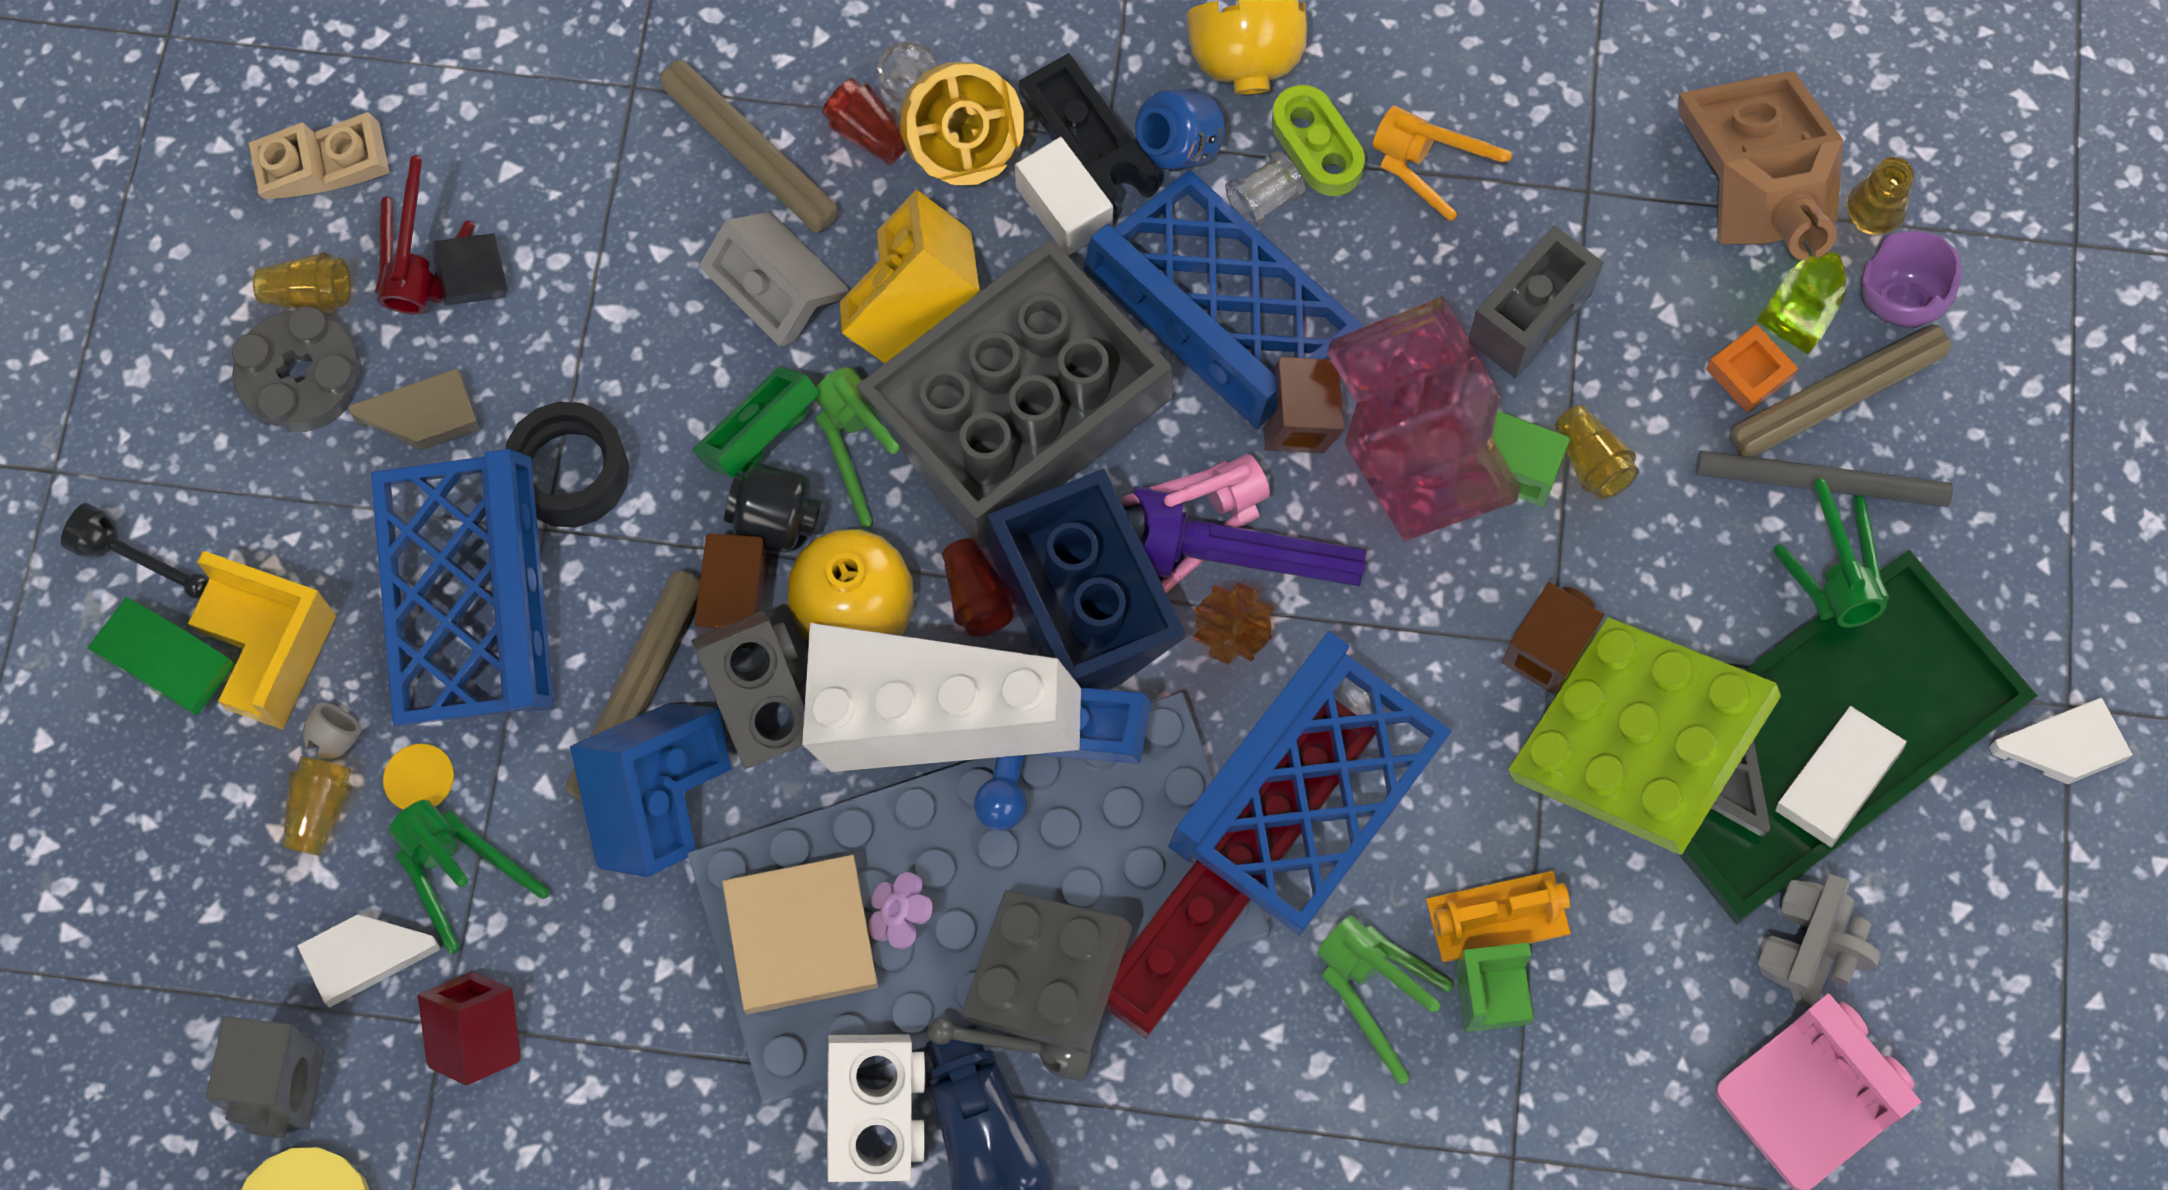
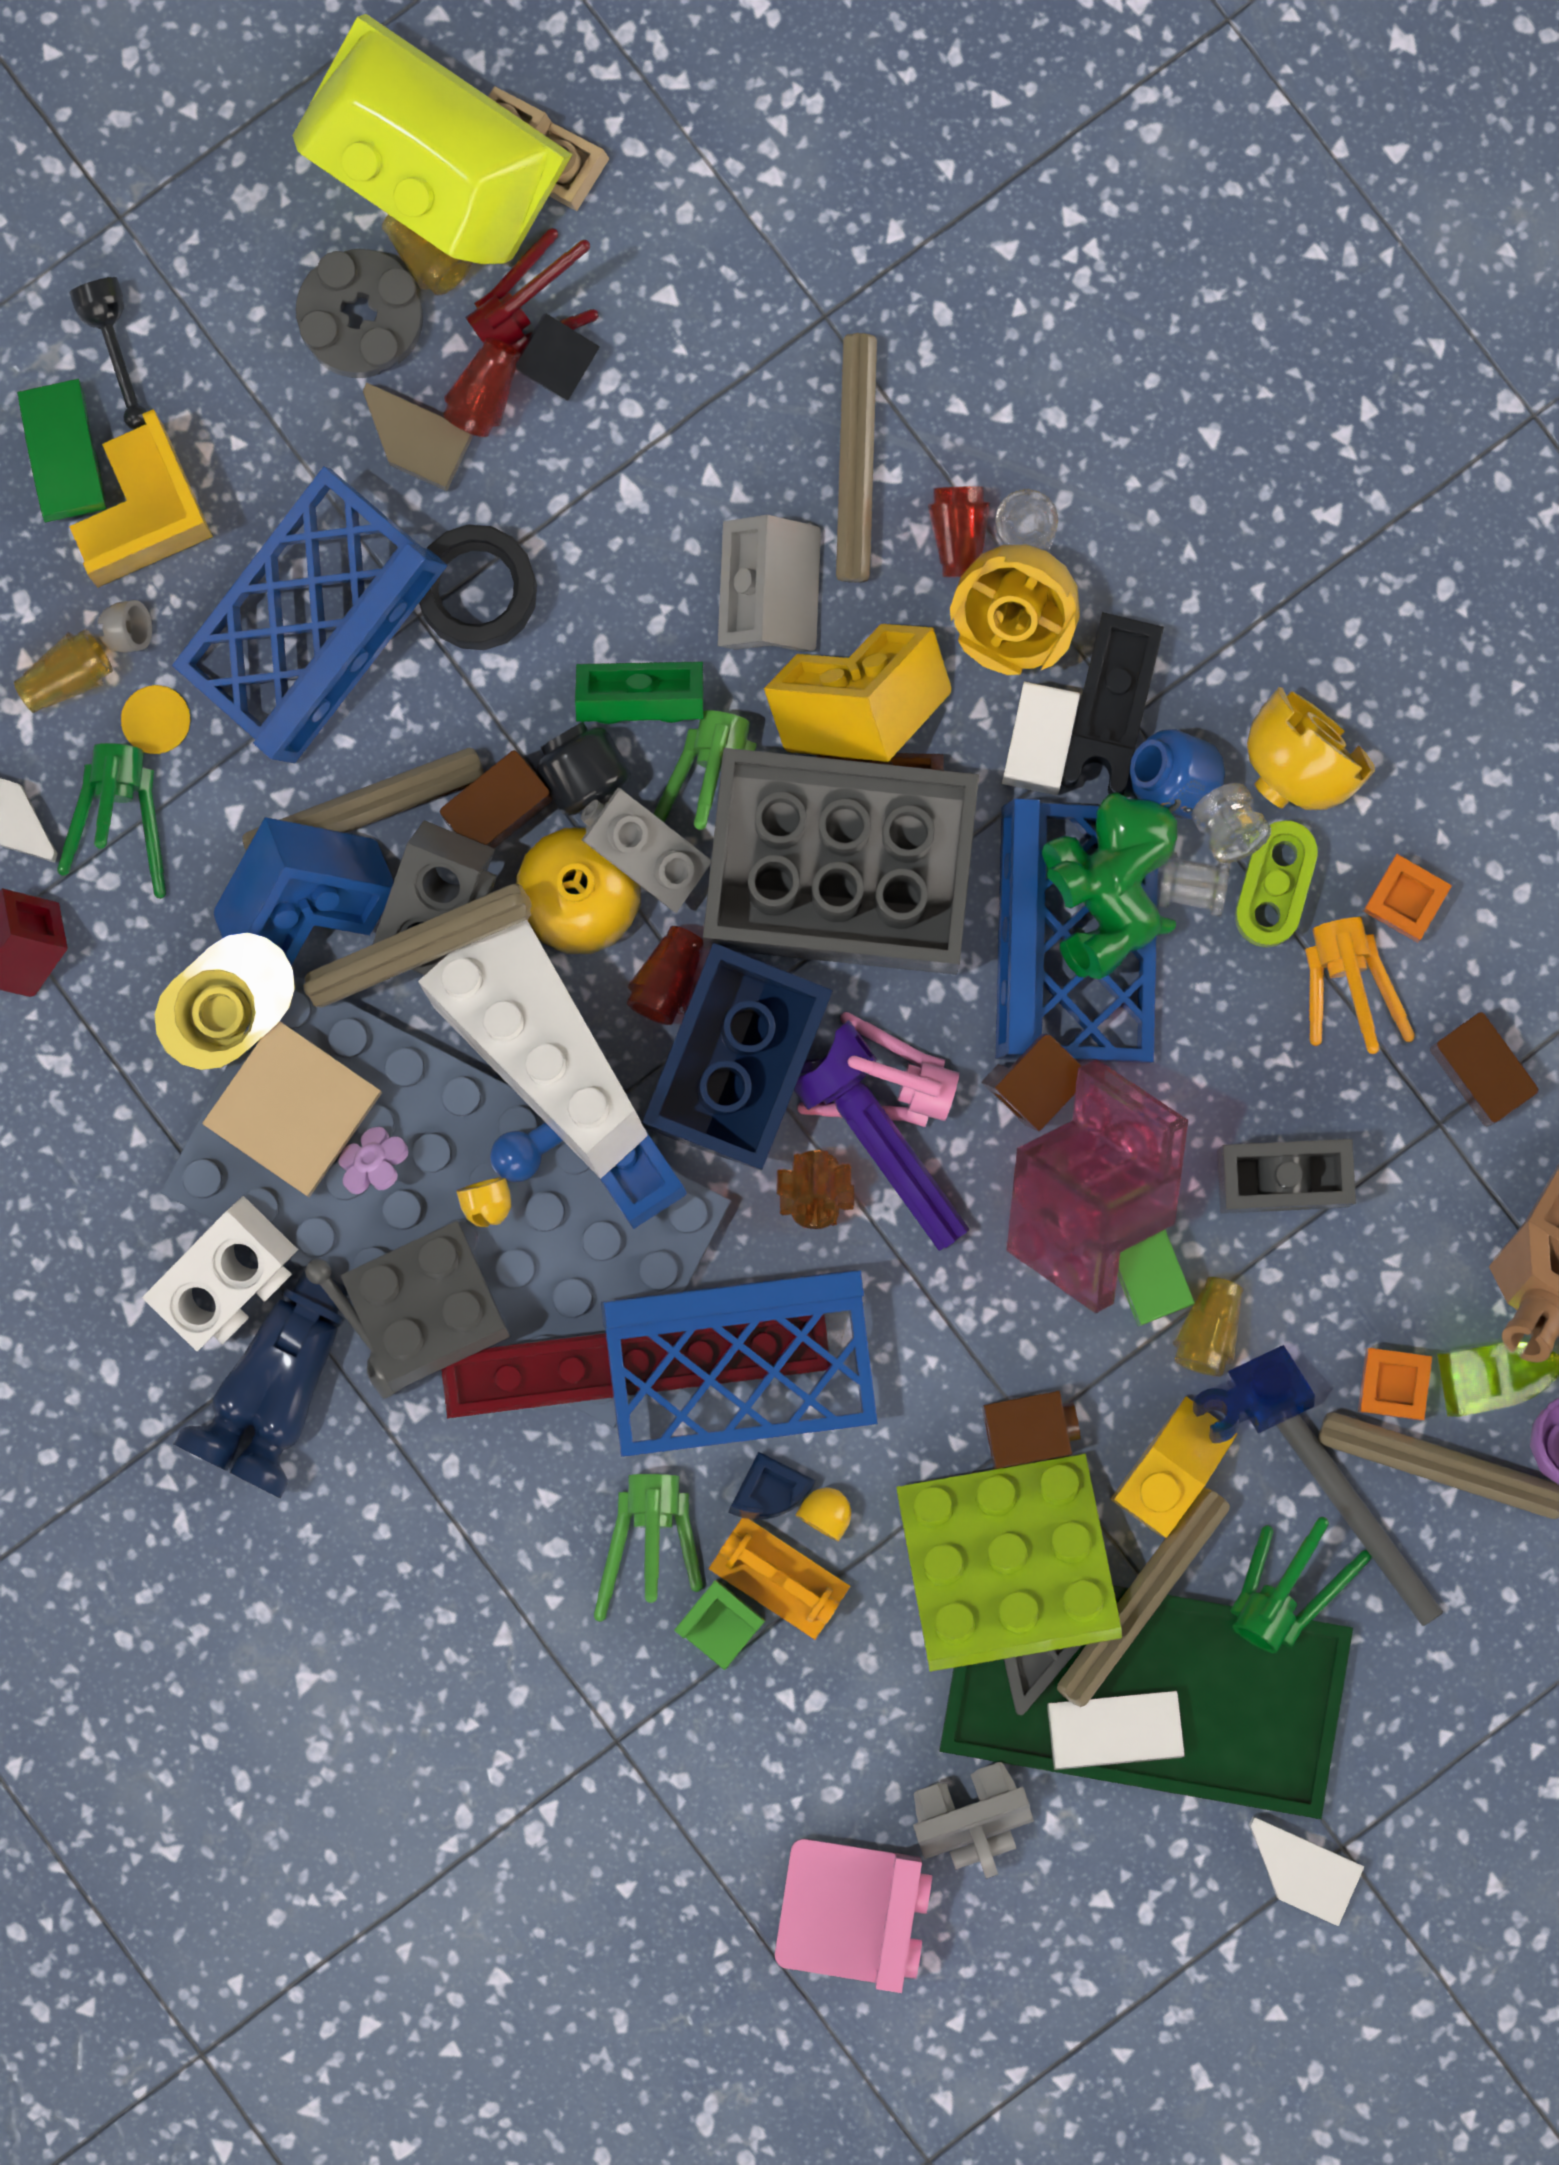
camera: 50 degrees right, 15 degrees up
(237, 205) = (428, 147): none -> neon yellow windscreen
(437, 329) = (482, 389): none -> clear red cone
(663, 899) = (218, 995): none -> light yellow piece
(776, 722) = (418, 945): none -> dark tan axle
(868, 508) = (644, 848): none -> light grey hinge
(1011, 856) = (485, 1201): none -> yellow hinge
(1200, 190) = (1132, 842): none -> green animal
(1249, 120) = (1231, 823): none -> clear wheel
(1410, 69) = (1407, 898): none -> orange plate
(1424, 862) = (770, 1490): none -> dark blue tile
(1481, 837) = (826, 1512): none -> yellow hinge
(1579, 122) = (1484, 1069): none -> reddish brown piece
(1673, 456) = (1260, 1390): none -> clear blue plate
(1678, 570) = (1171, 1470): none -> yellow slope
(1755, 655) = (1145, 1595): none -> dark tan axle

